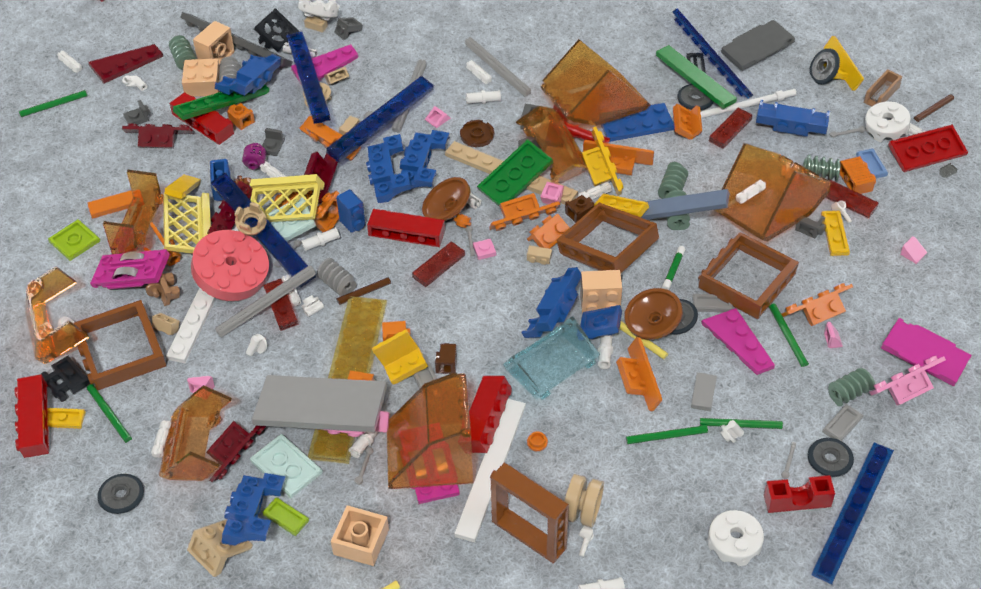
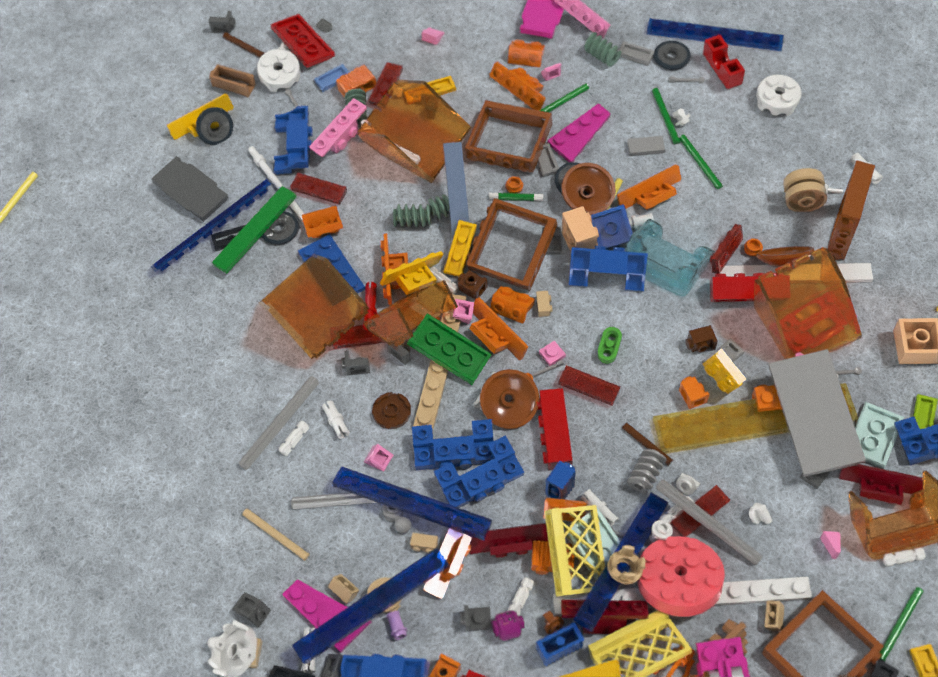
camera: 105 degrees left, 10 degrees up
(275, 267) = (661, 531): none -> white plate
(291, 99) = (396, 625): none -> lavender pin
(401, 50) = (276, 534): none -> tan bar
(474, 289) = (609, 346): none -> bright green plate
(510, 445) = (783, 255): none -> dark orange dish
(539, 410) = (726, 248): none -> clear red plate
(687, 268) = (514, 185): none -> orange plate
(791, 145) = (339, 130): none -> bright pink bracket
(867, 321) = (526, 53): none -> orange bracket
(964, 95) = (222, 24): none -> dark grey bracket

